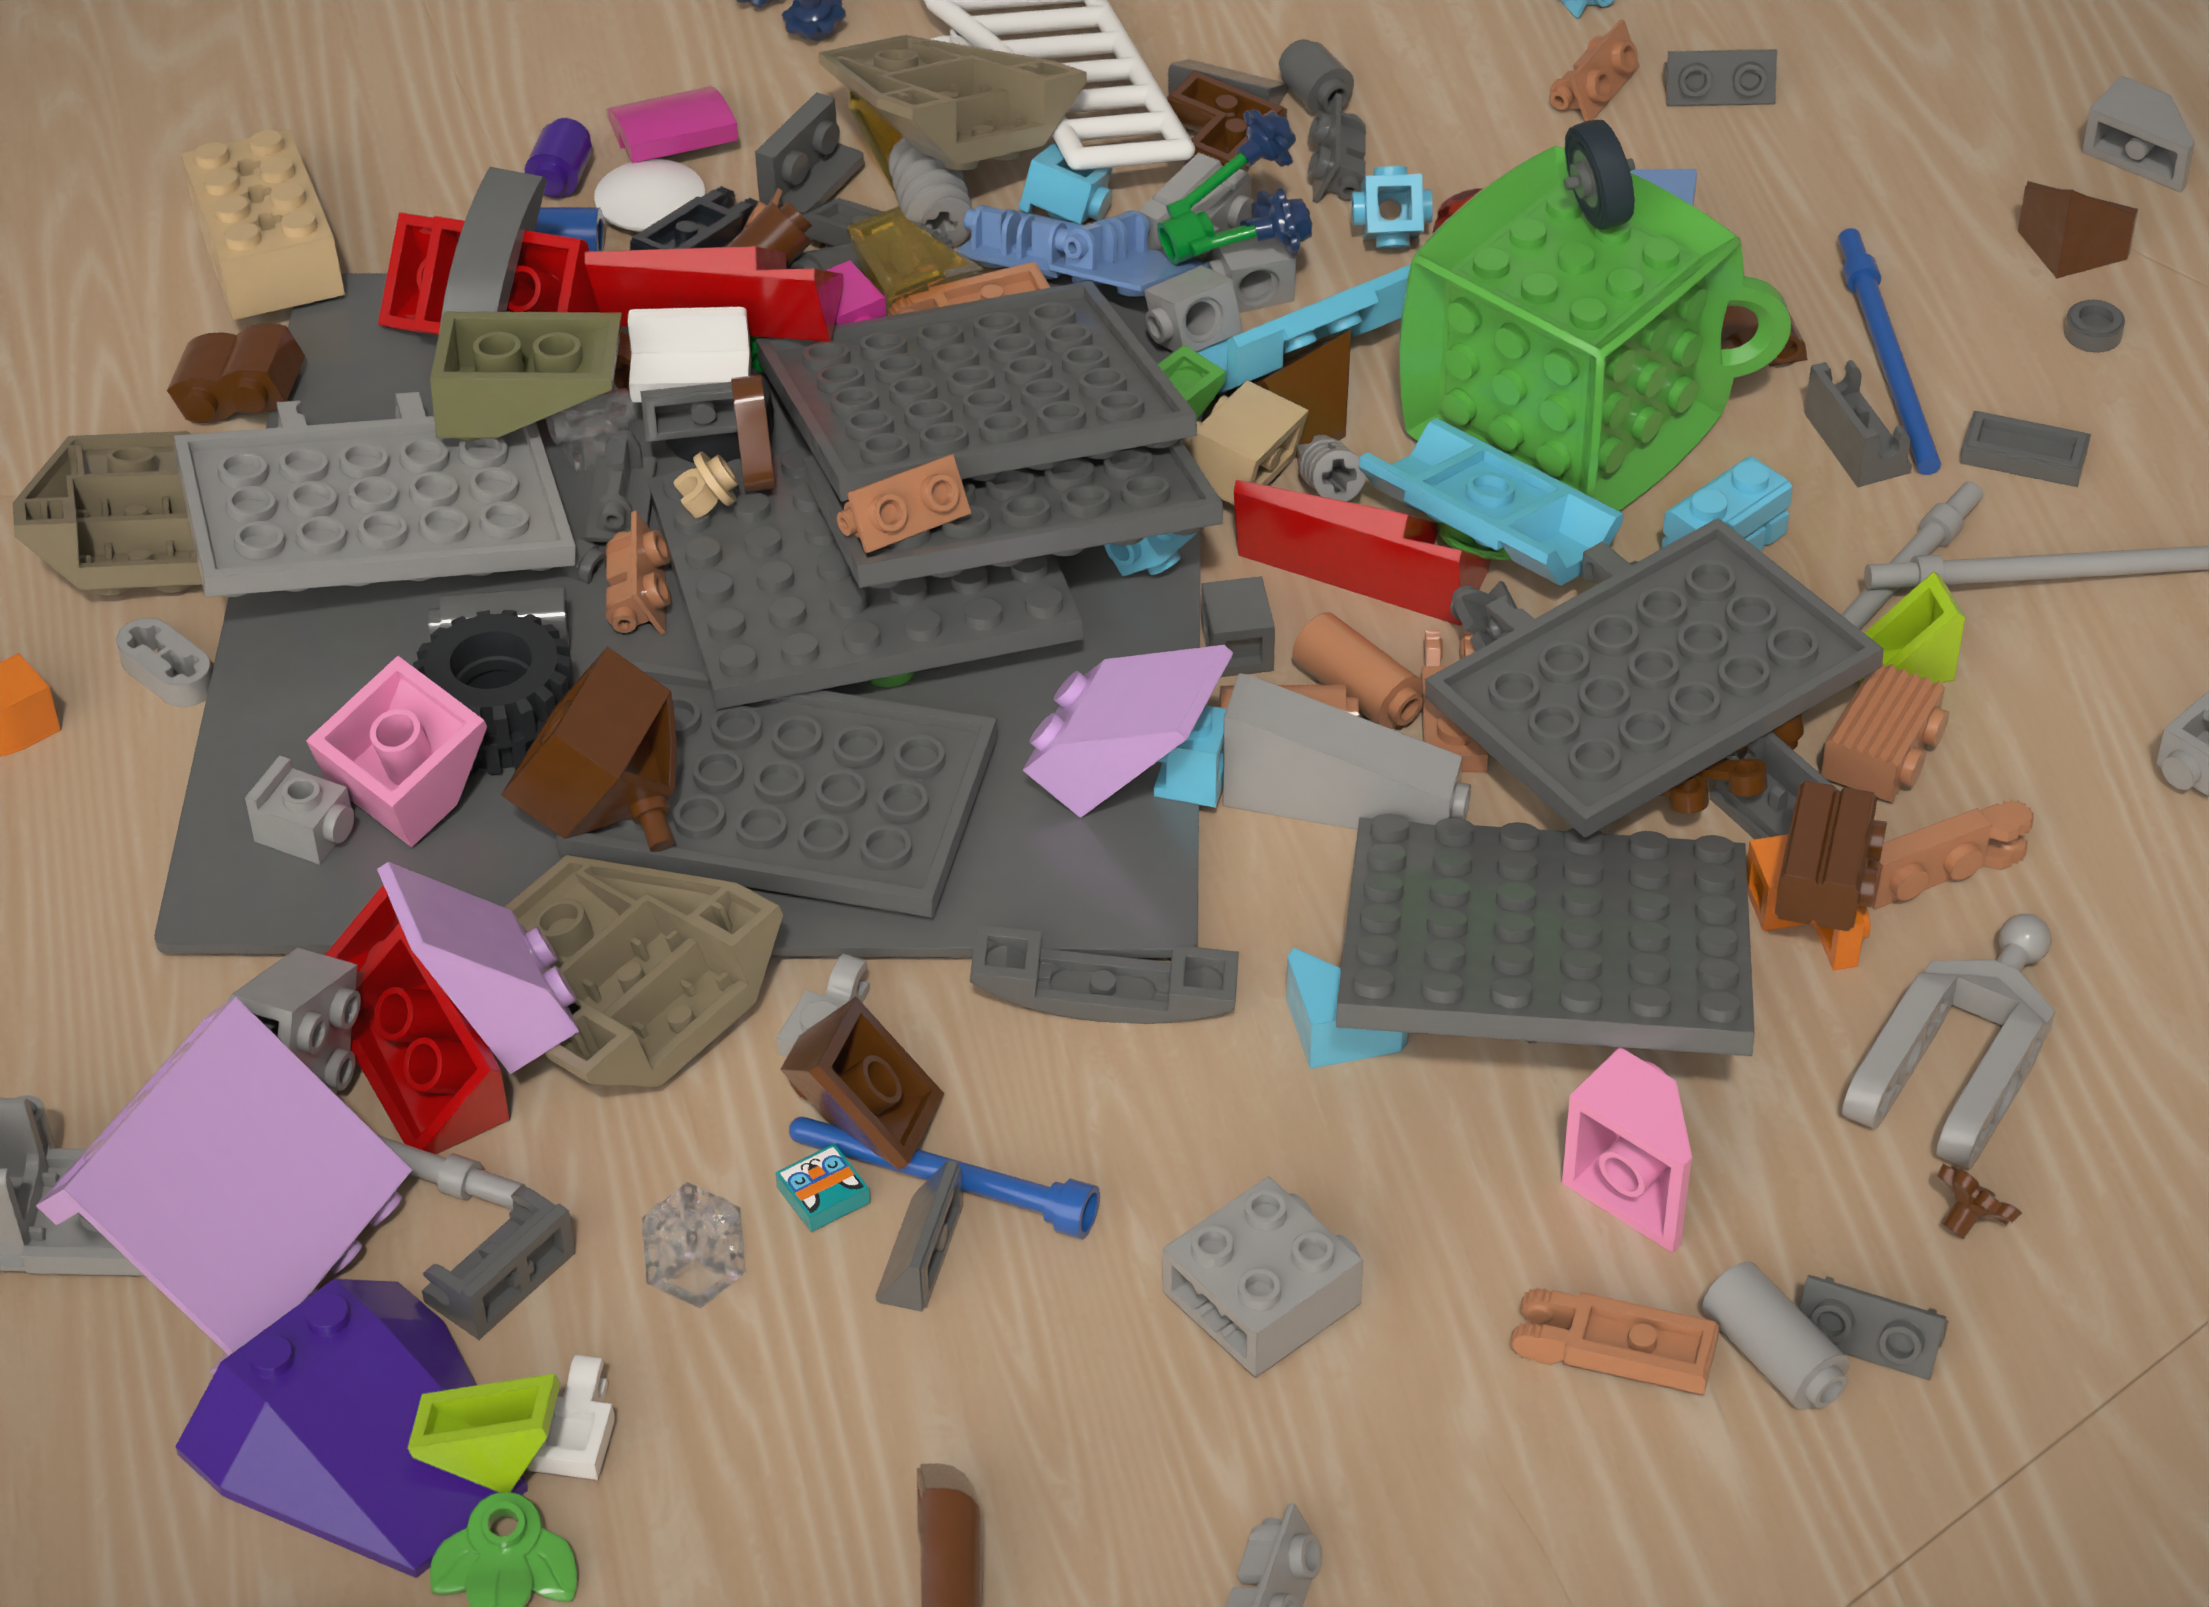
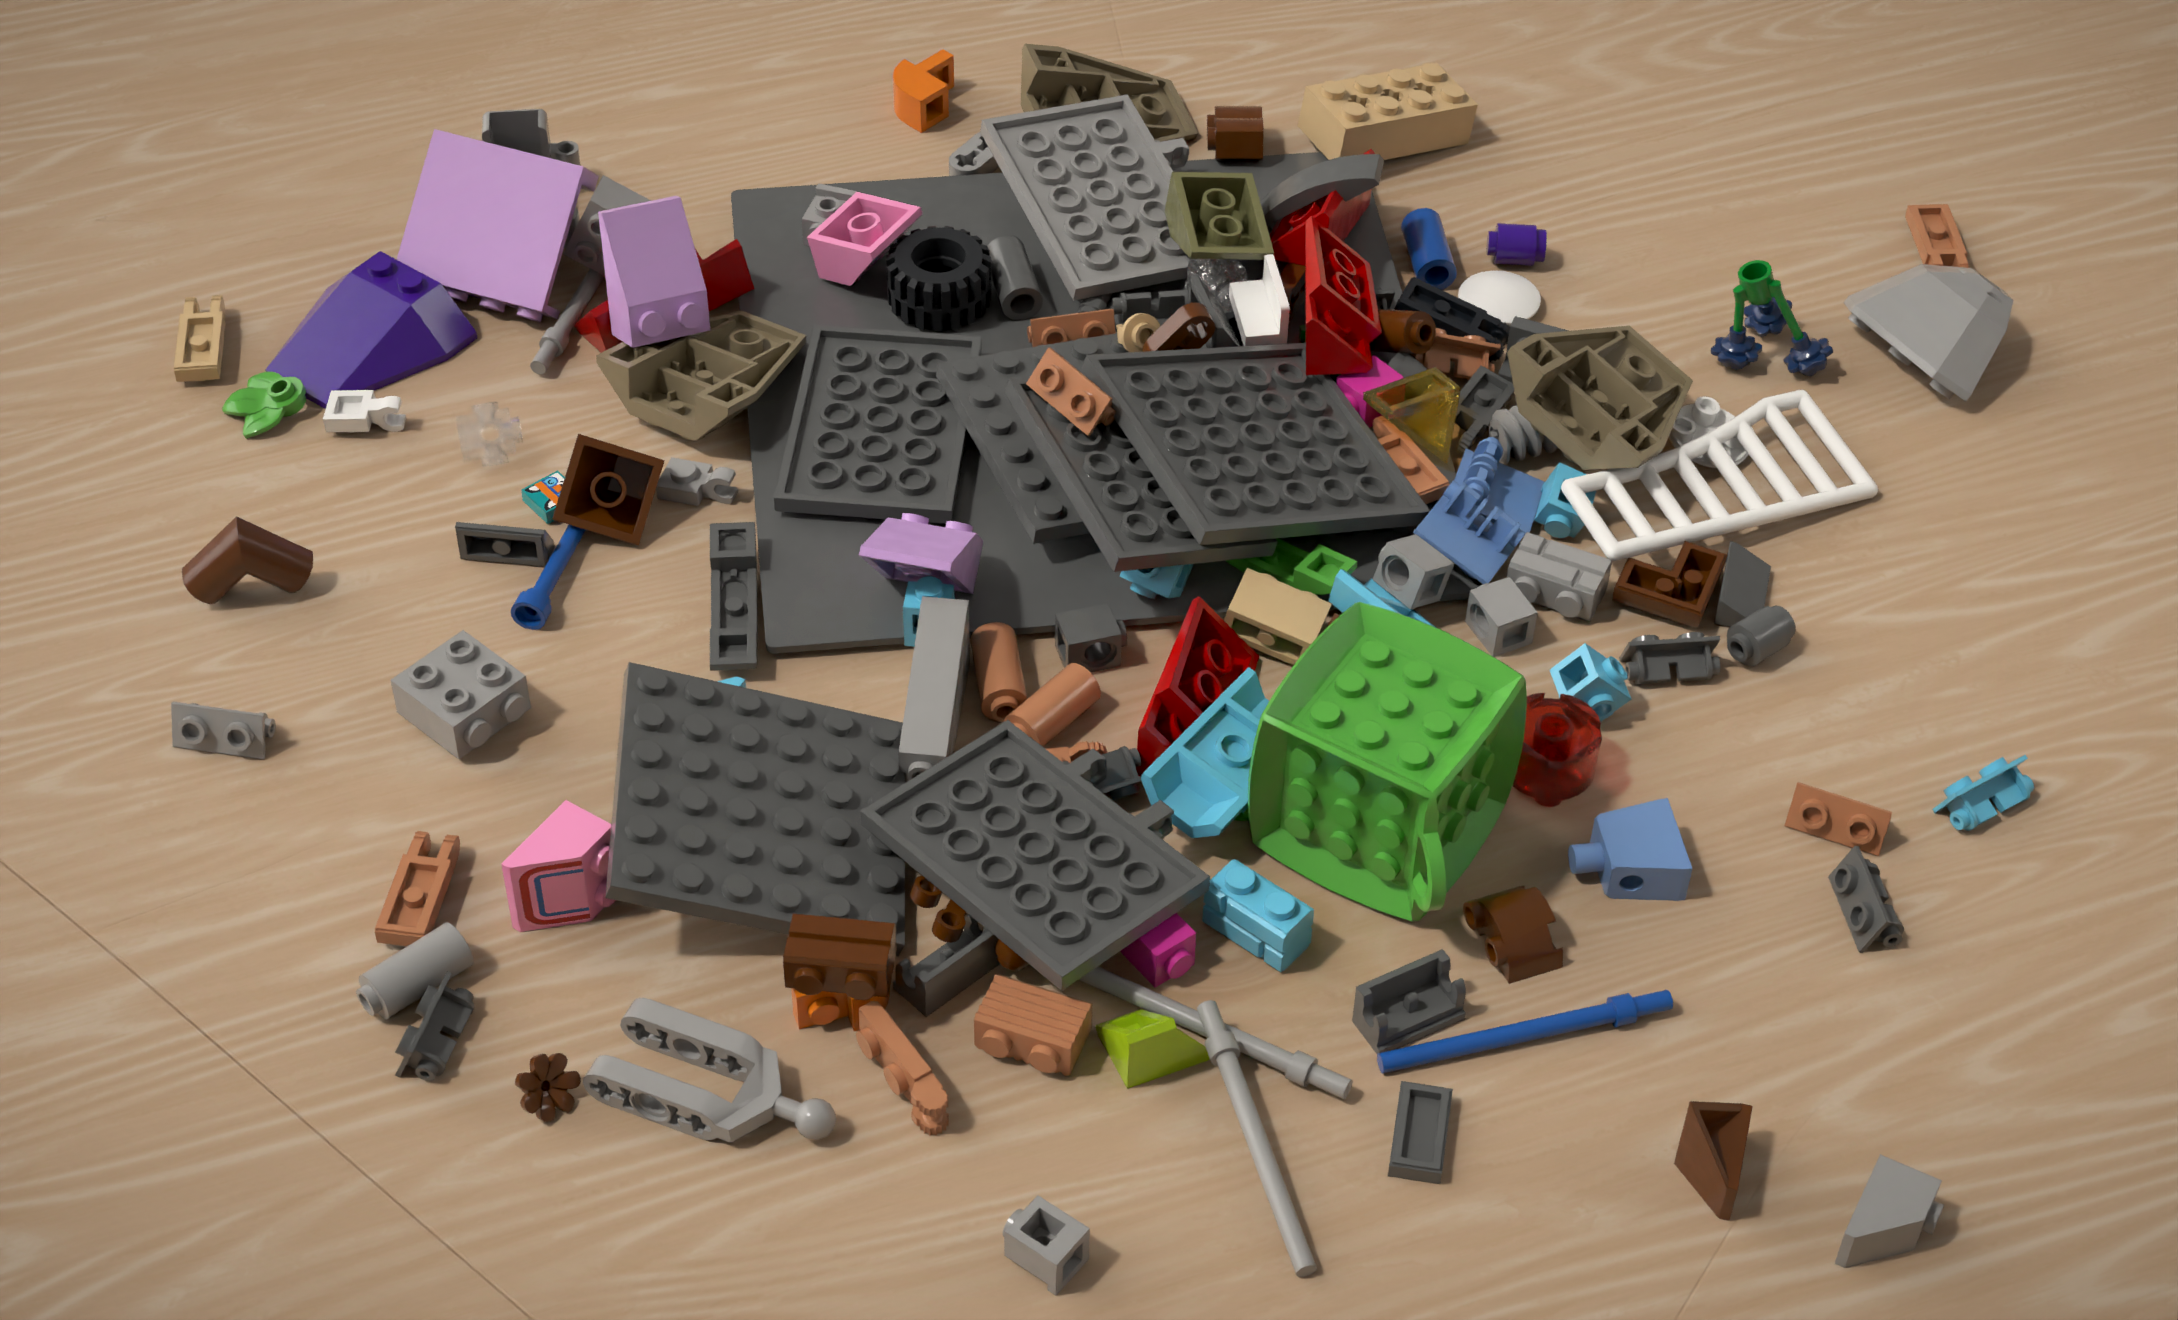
camera: 80 degrees right, 0 degrees up
(485, 1429) = (342, 363): lime slope -> none
(503, 1266) = (481, 369): dark grey hinge -> none
(603, 755) = (849, 307): reddish brown piece -> none
(673, 124) = (1581, 295): dark pink slope -> none
(1274, 216) = (1512, 598): plant -> none
(1330, 468) = (1269, 666): light grey hinge -> none
(1599, 174) = (1450, 680): black wheel -> none
(2094, 326) = (1603, 1185): dark grey tile -> none

